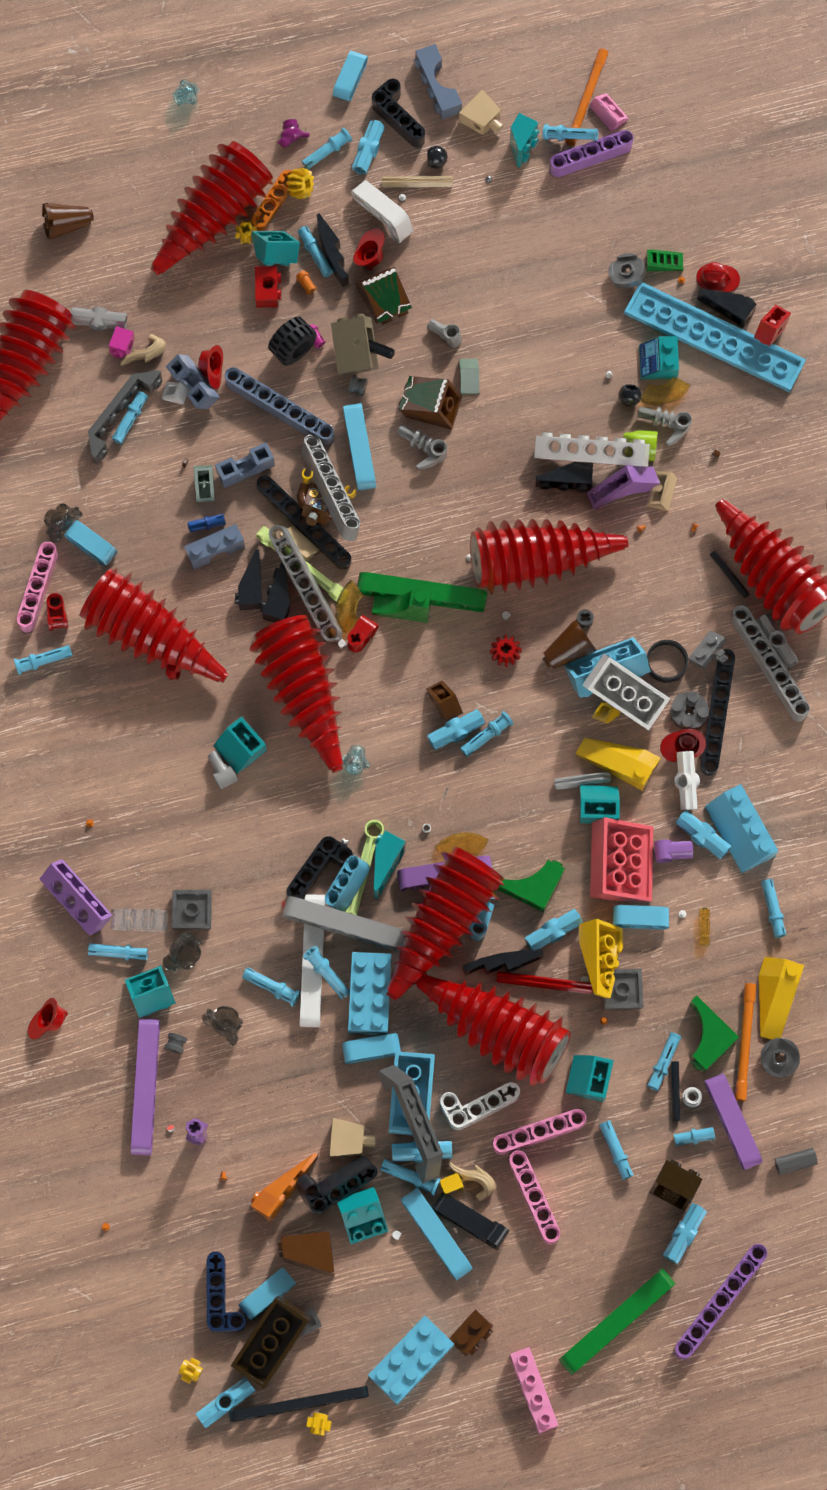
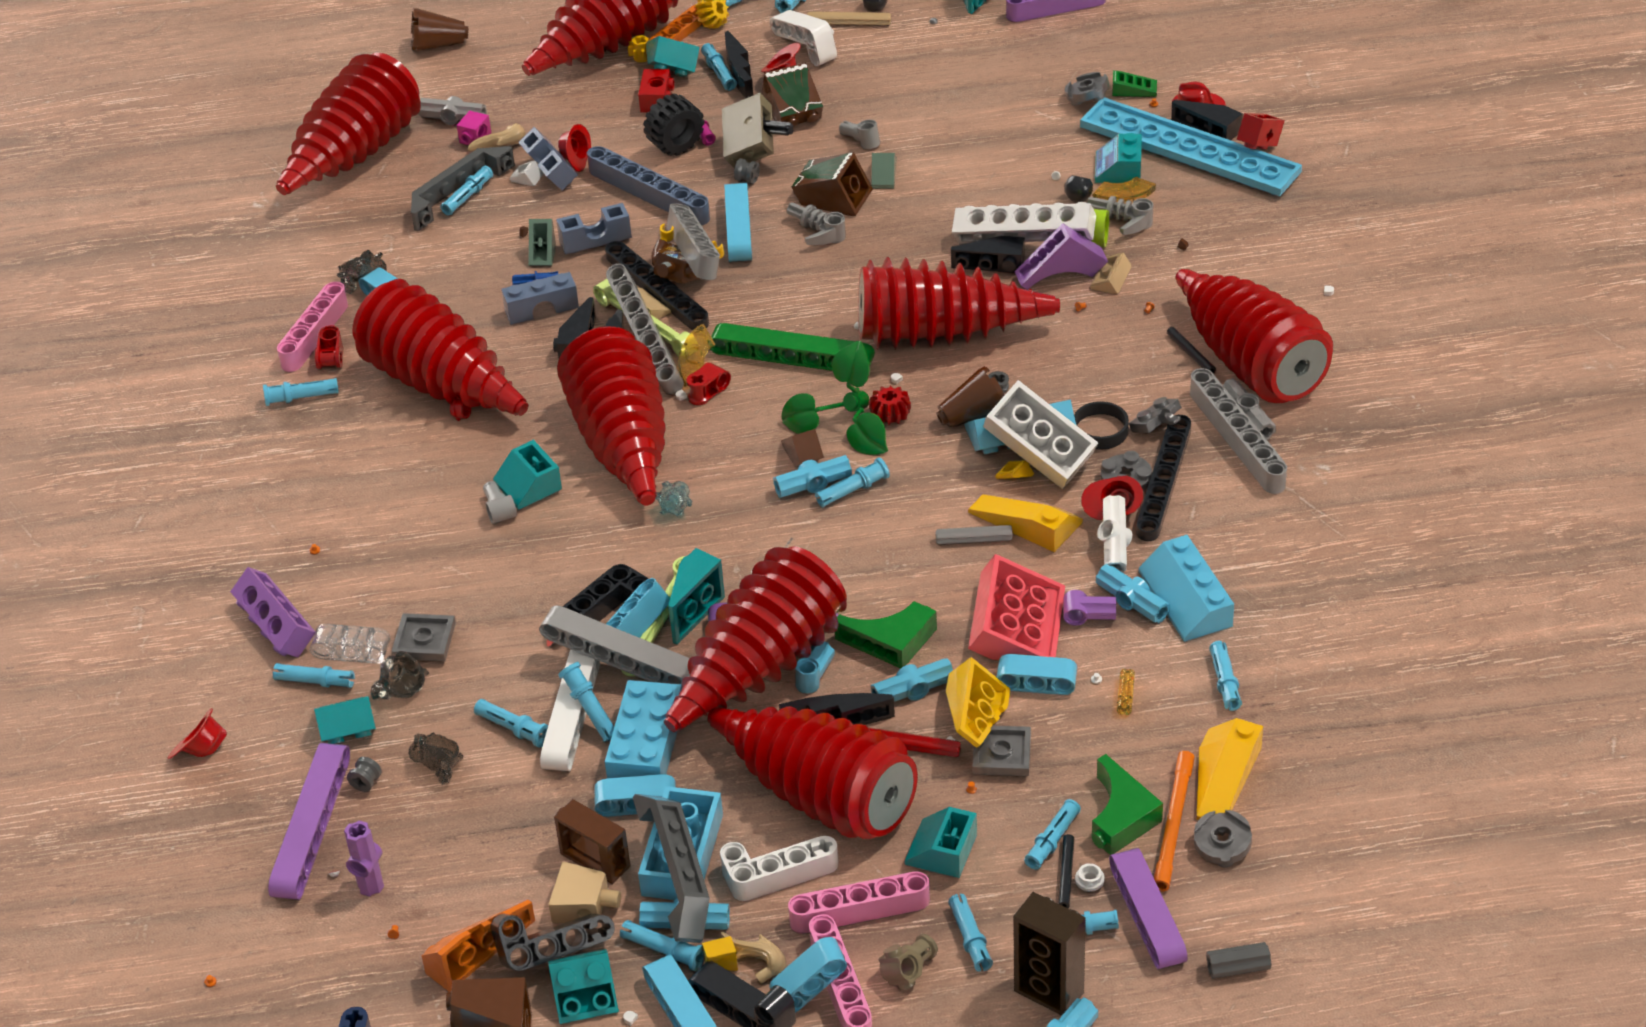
camera: 10 degrees right, 30 degrees down
(306, 283) = (700, 86): orange pin -> none
(349, 1098) = (592, 840): none -> reddish brown window
(409, 606) = (774, 359): green arch -> none
(480, 641) = (868, 432): none -> green plant
(514, 1203) = (812, 971): none -> medium azure beam
(577, 1182) = (905, 963): none -> dark tan connector
(598, 803) = (981, 550): teal slope -> none

